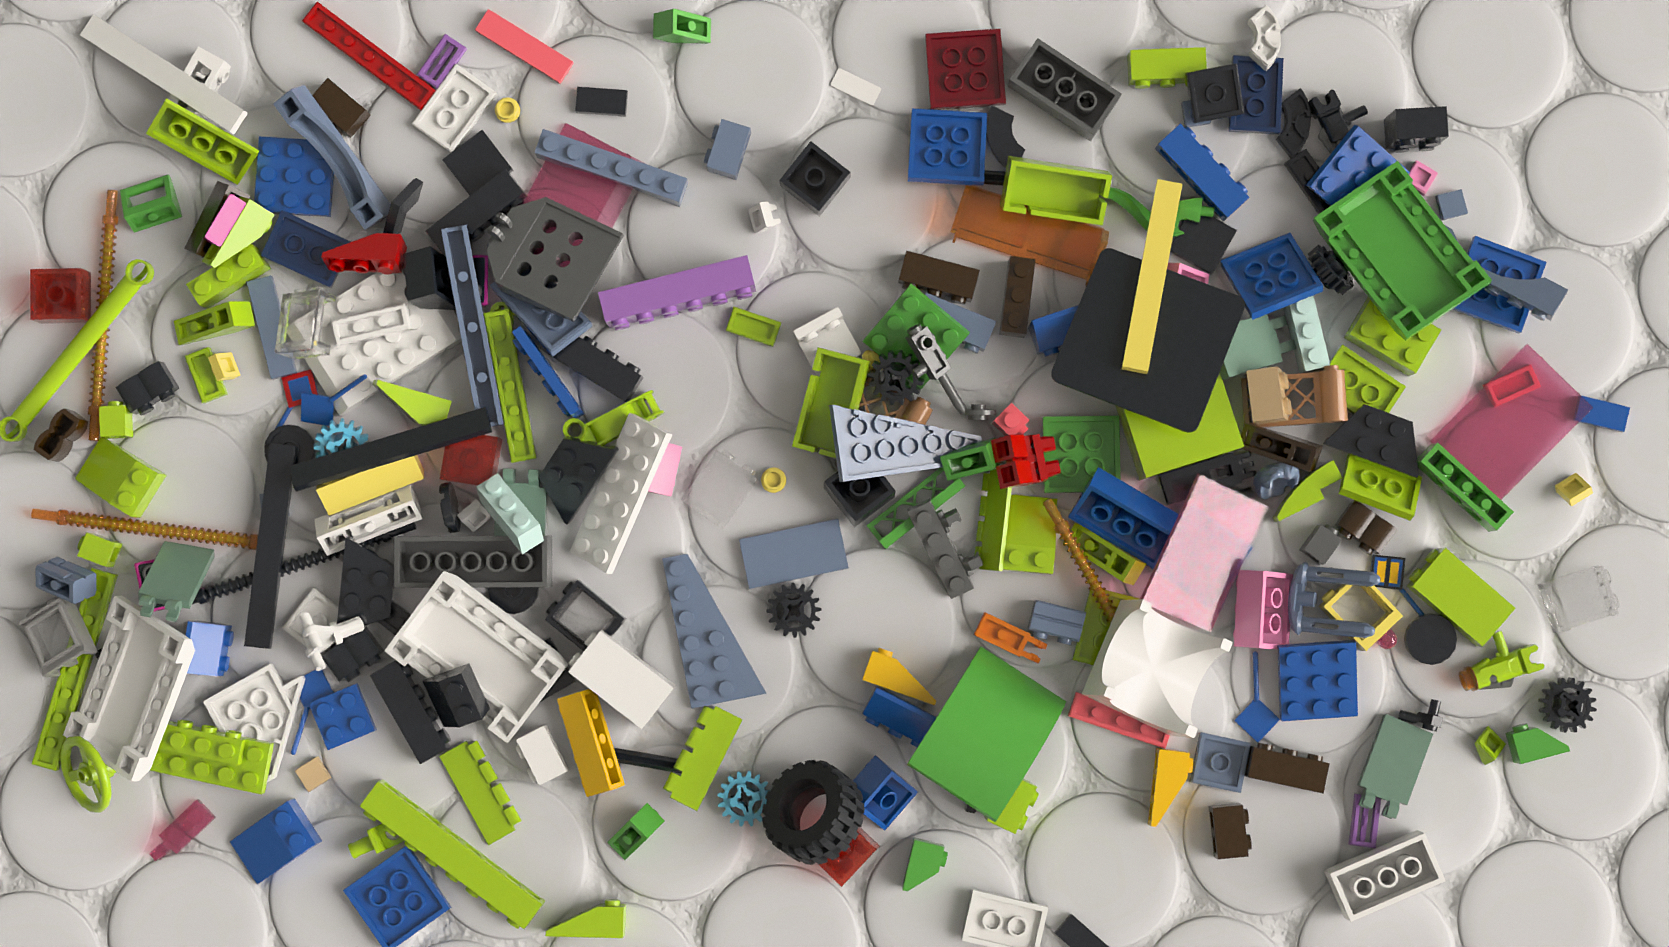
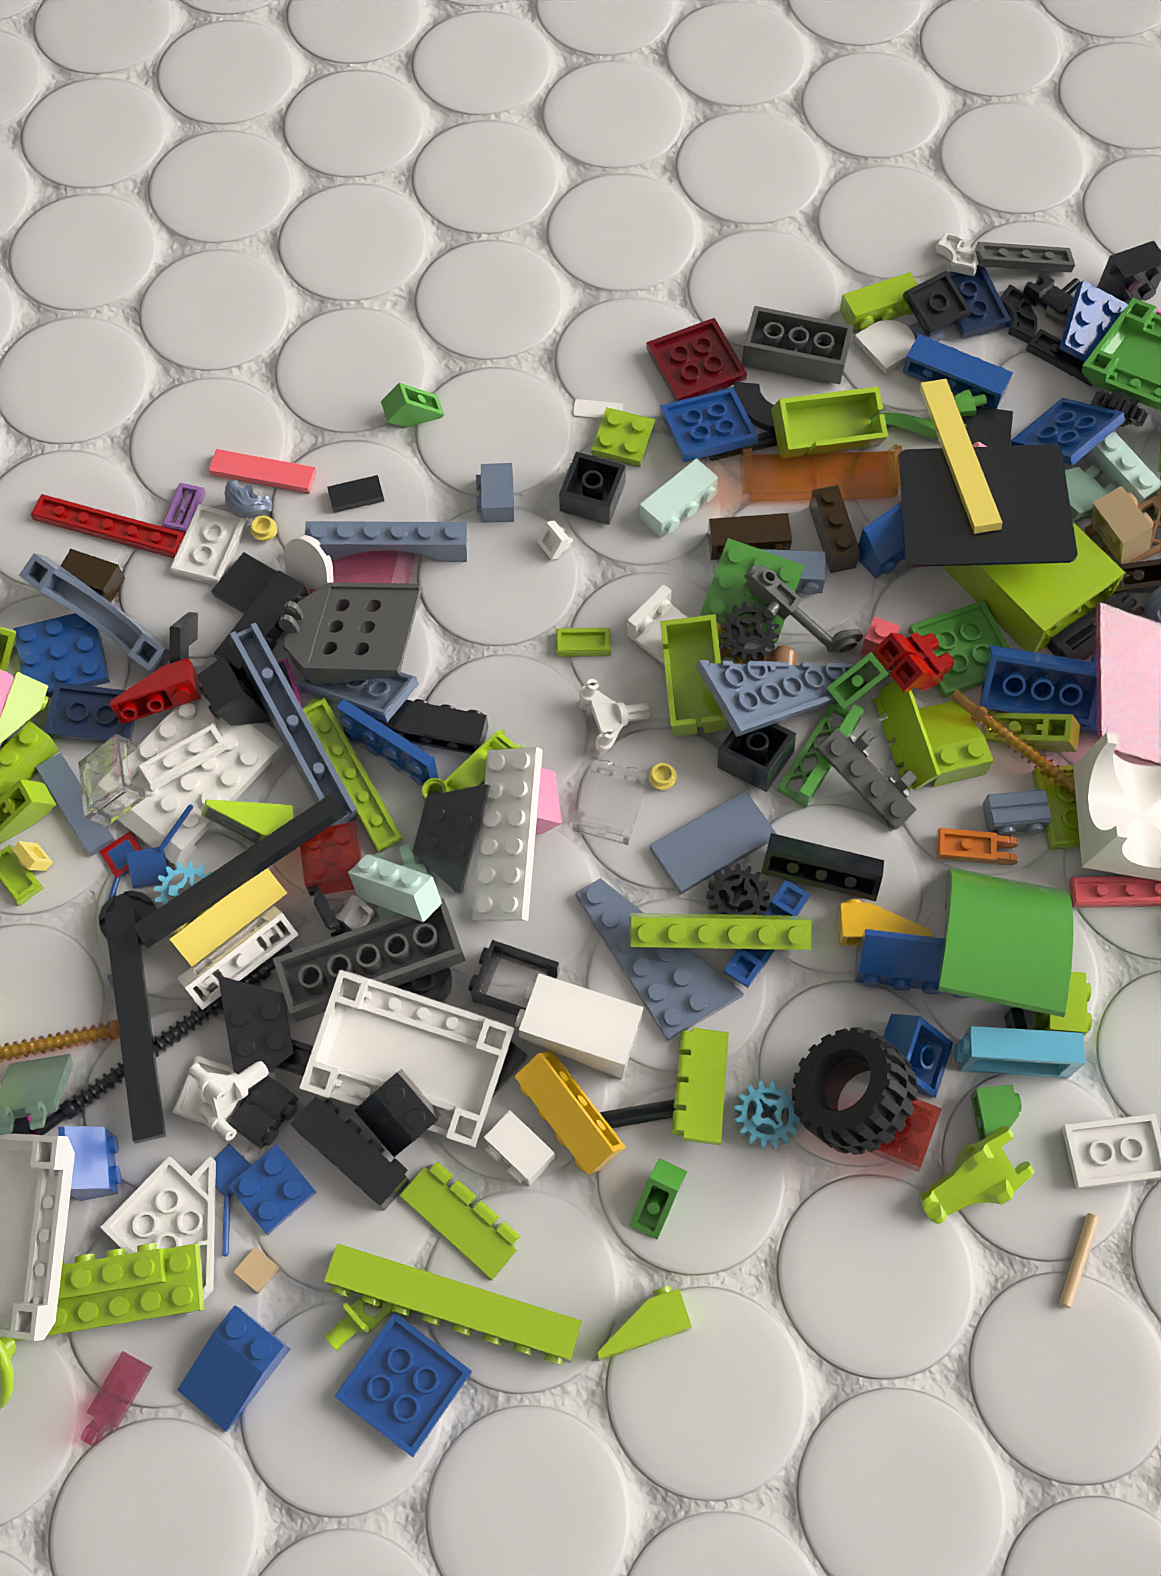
camera: 20 degrees left, 20 degrees down
(499, 79) = (244, 502): none -> sand blue hair
(531, 169) = (308, 562): none -> white tile
(677, 292) = (495, 626): medium lavender brick -> none
(748, 410) = (608, 715): none -> white axle
(762, 641) = (720, 931): none -> lime brick
(803, 652) = (748, 963): none -> blue slope
(866, 127) = (623, 437): none -> lime plate
(872, 612) = (823, 867): none -> black brick
(886, 905) = (978, 1176): none -> lime animal
(891, 214) = (679, 498): none -> light aqua brick
(960, 824) = (1020, 1052): none -> medium azure window
(1154, 112) = (886, 343): none -> white tile
(1326, 66) = (1024, 257): none -> dark grey plate

